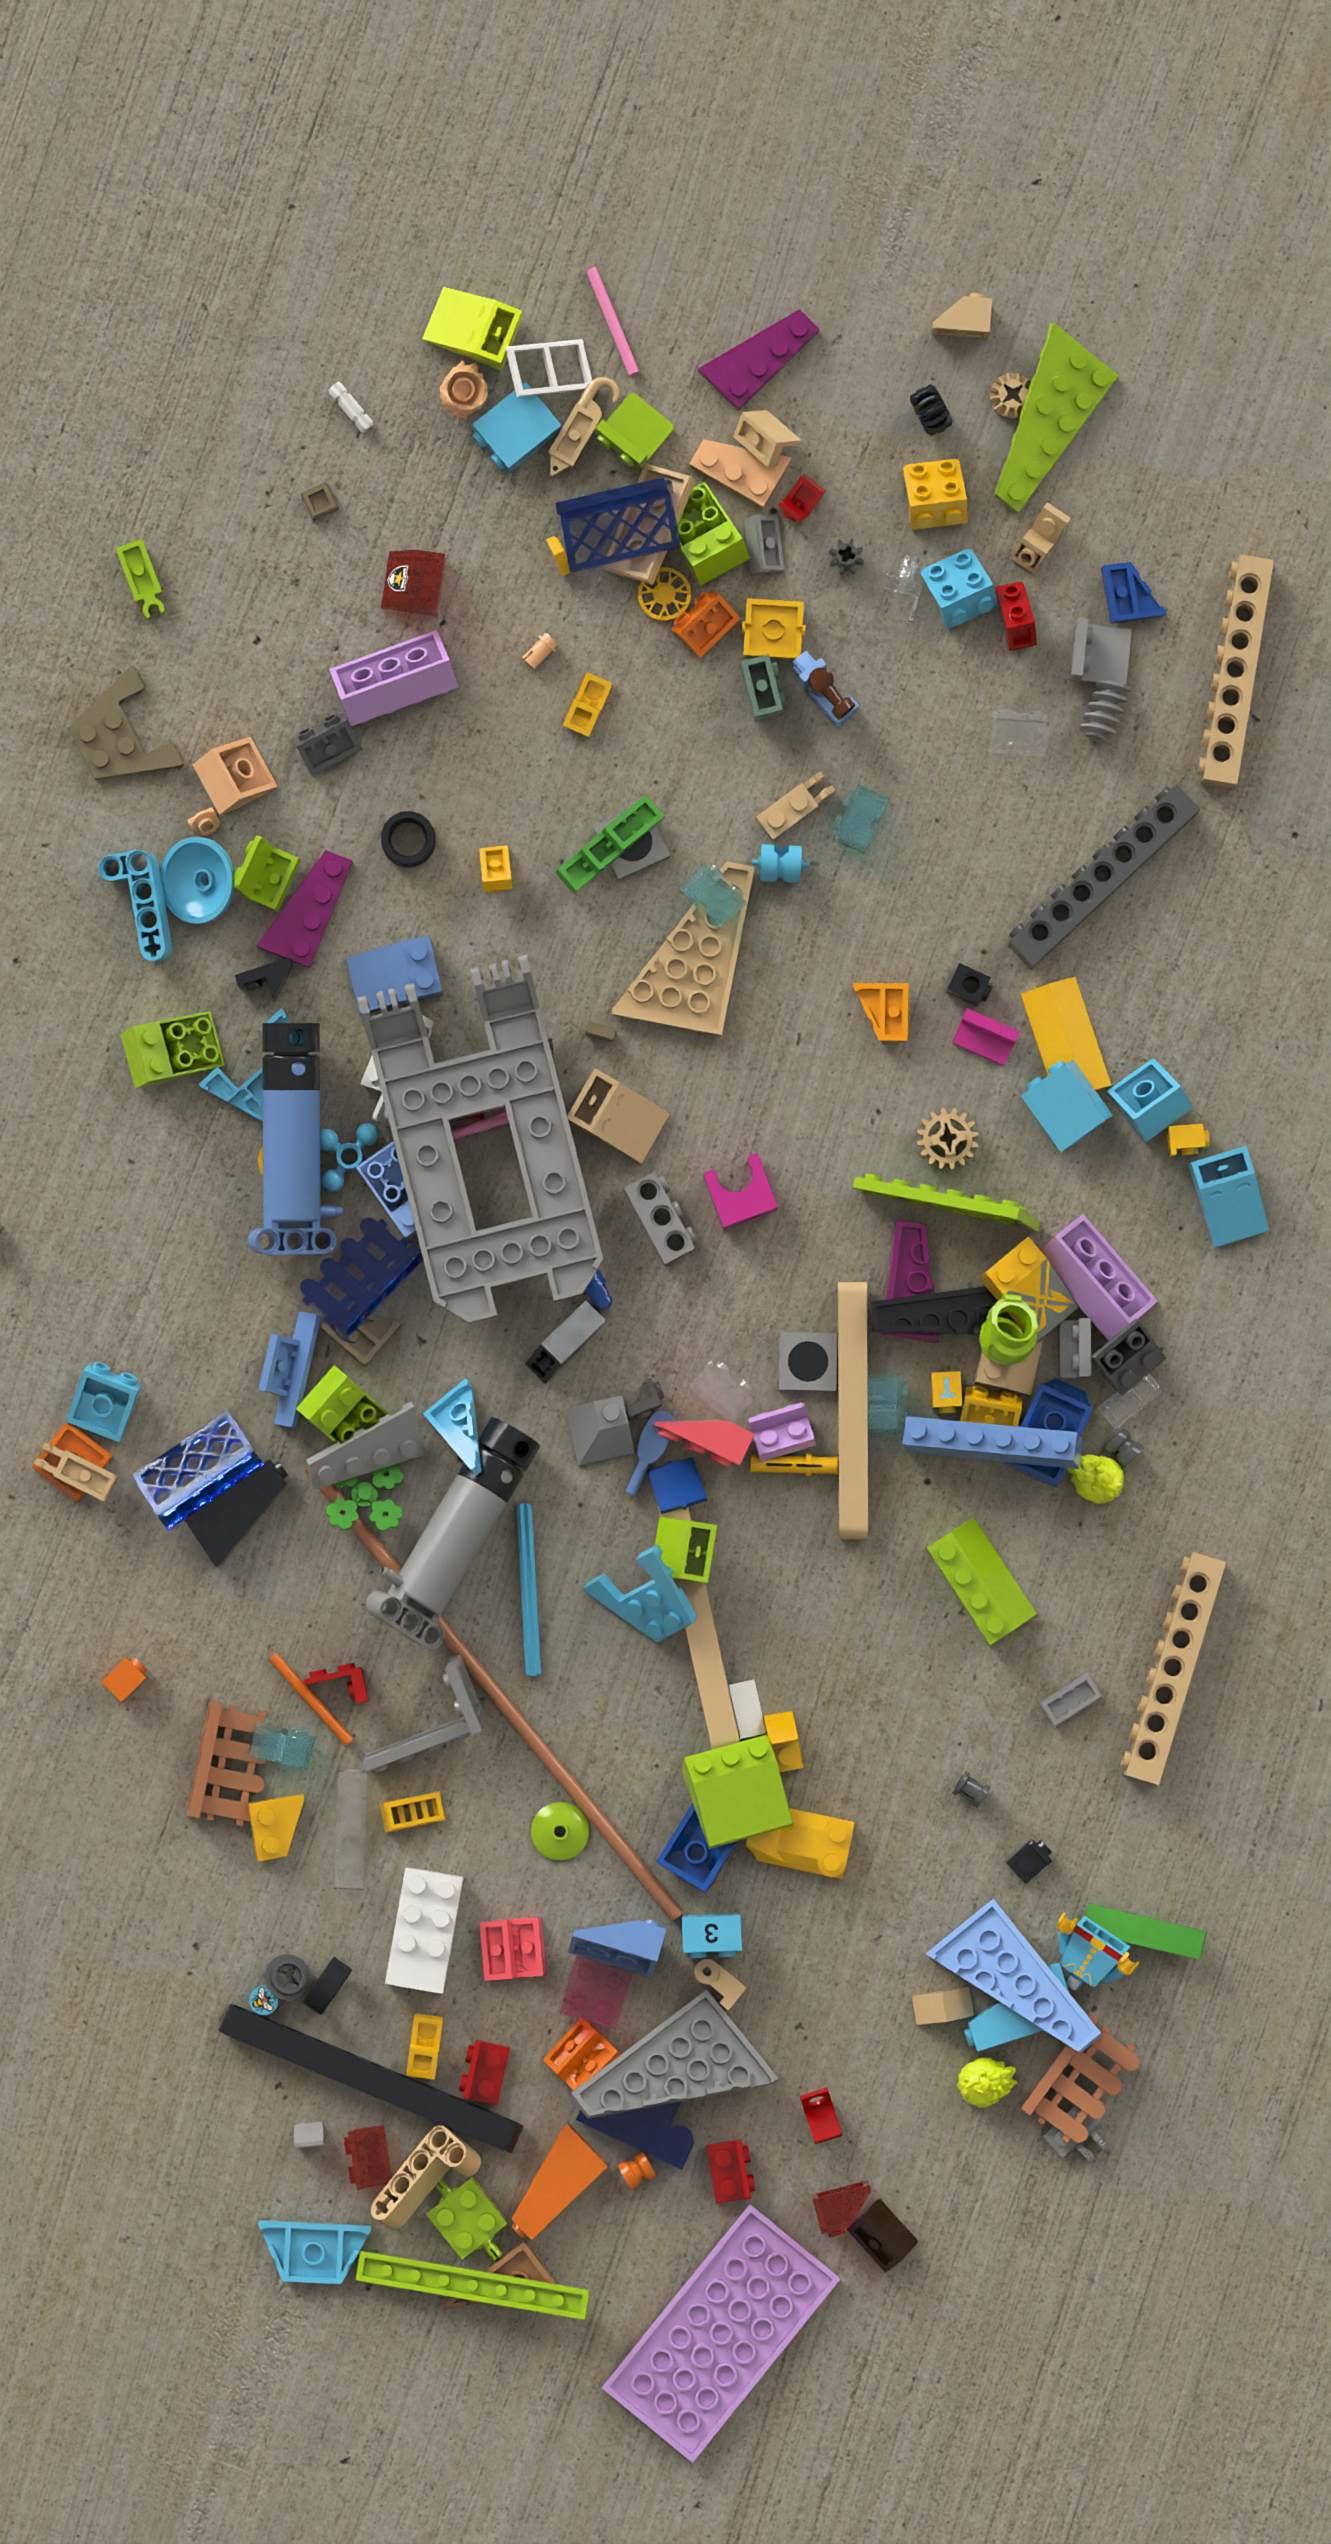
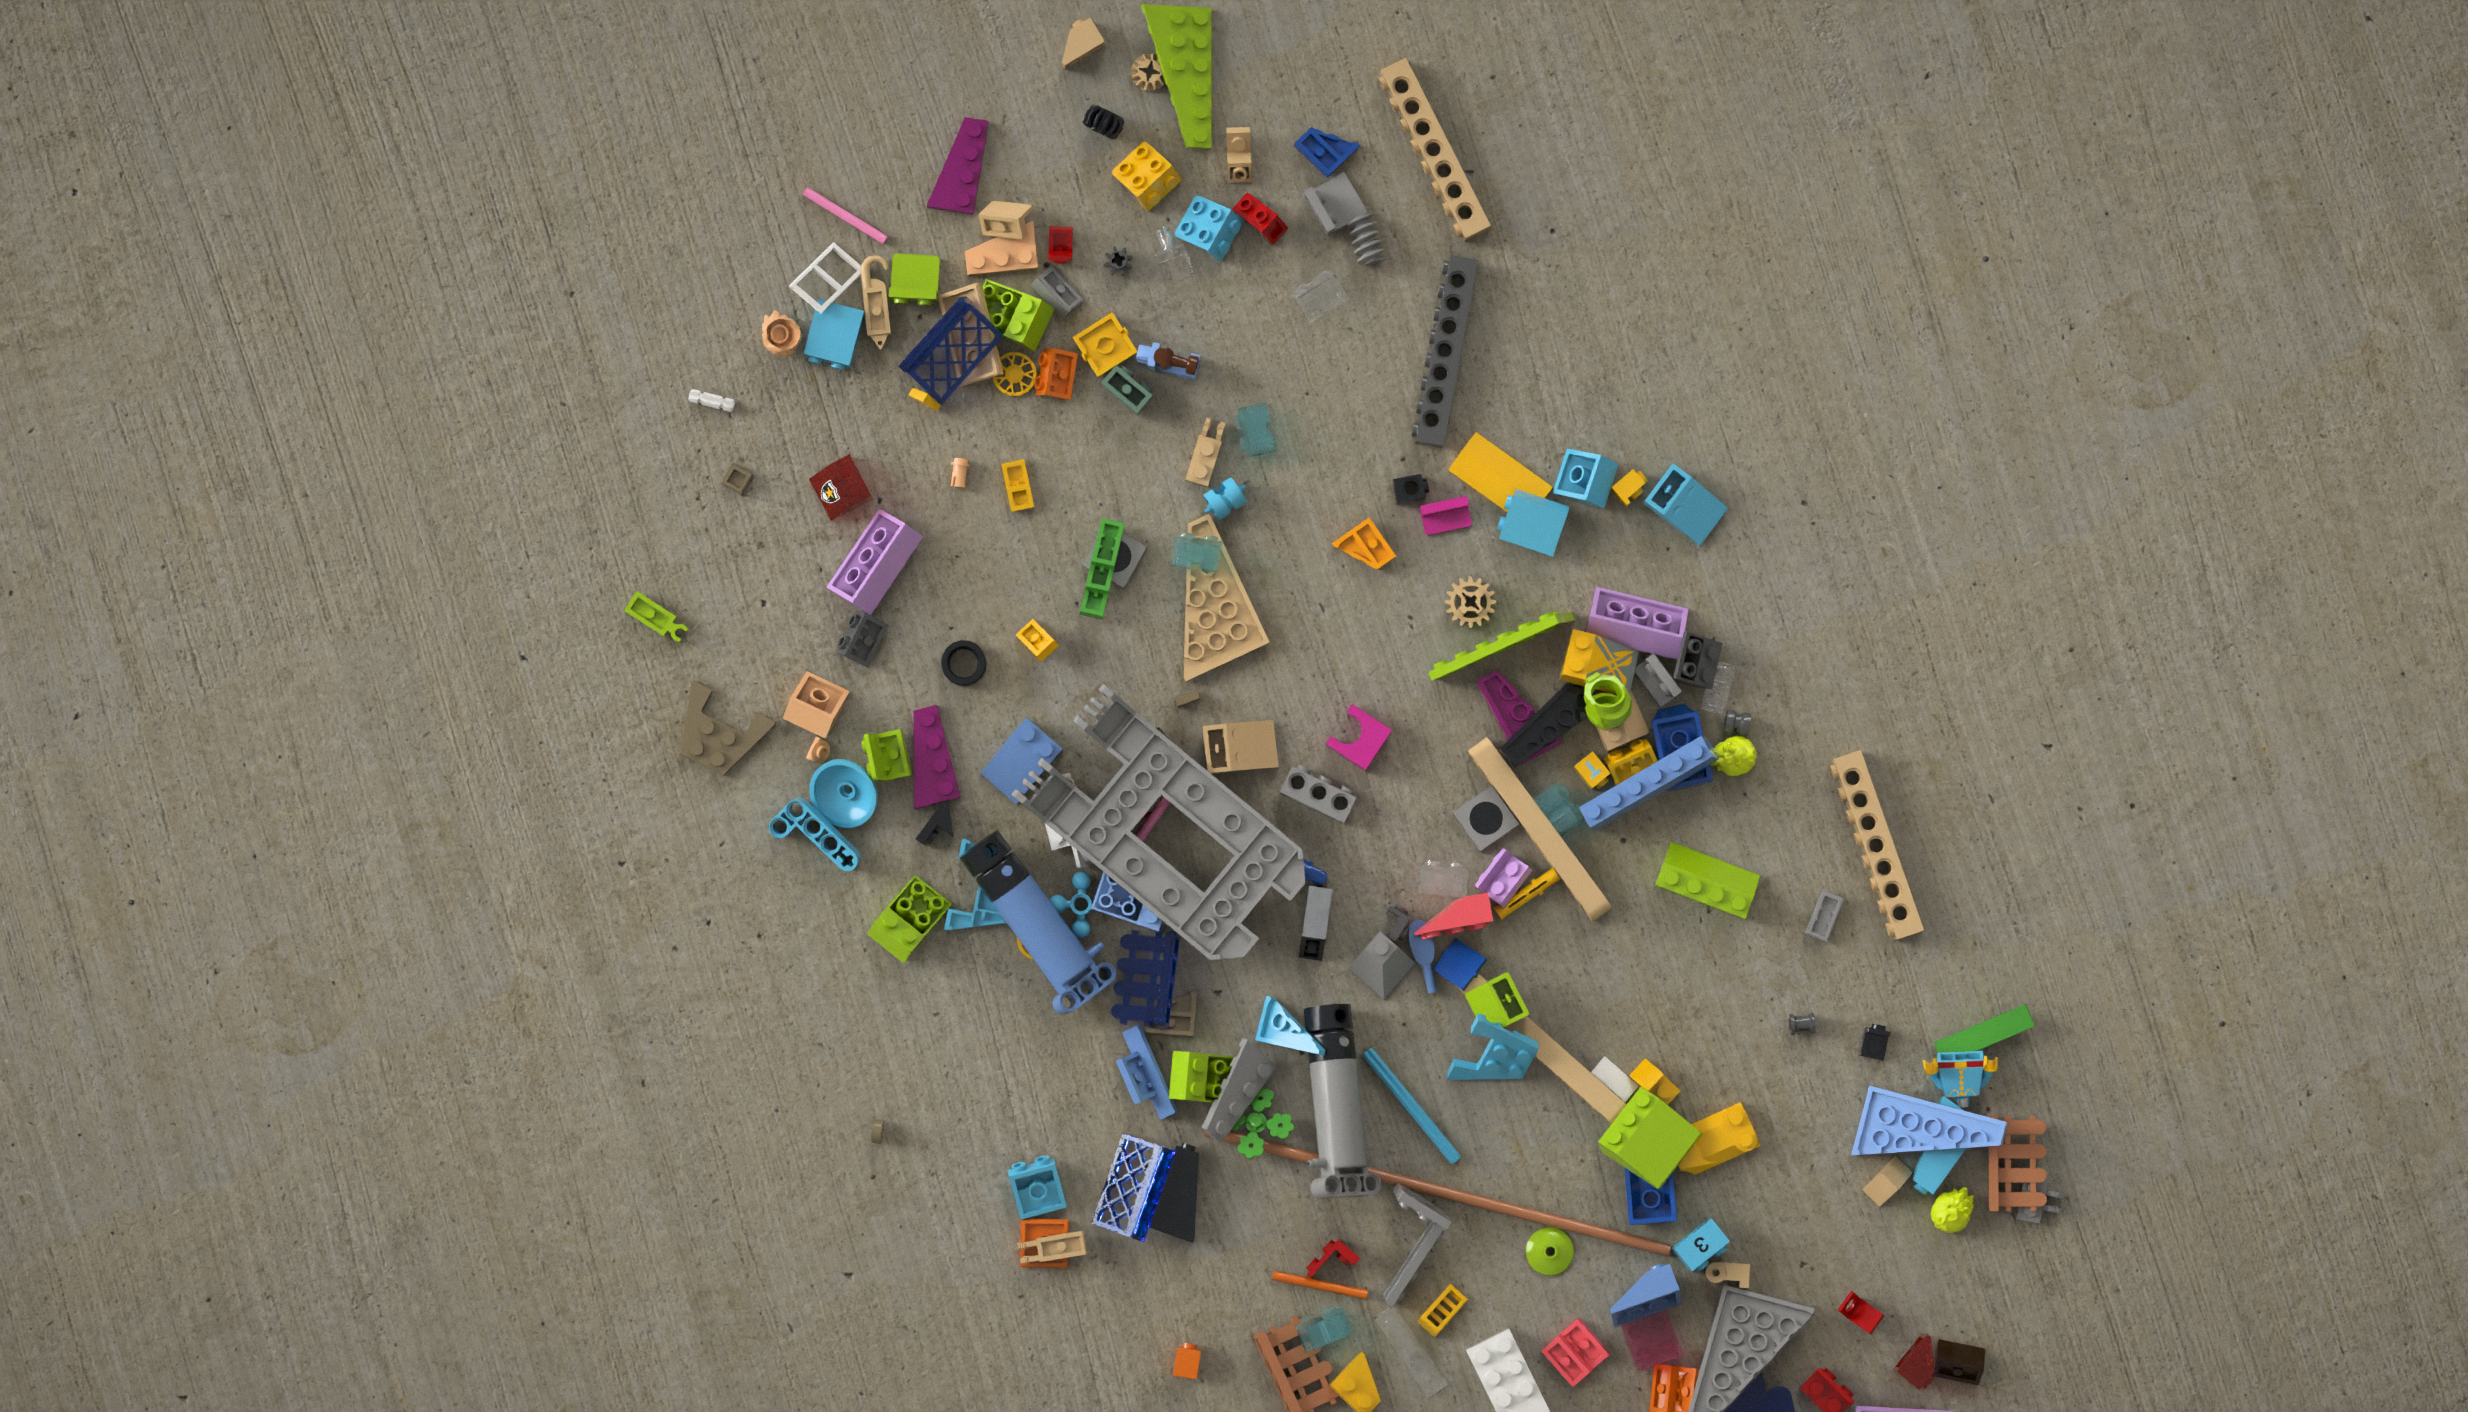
camera: 35 degrees left, 0 degrees up
(473, 327) = (755, 287): neon yellow slope -> none

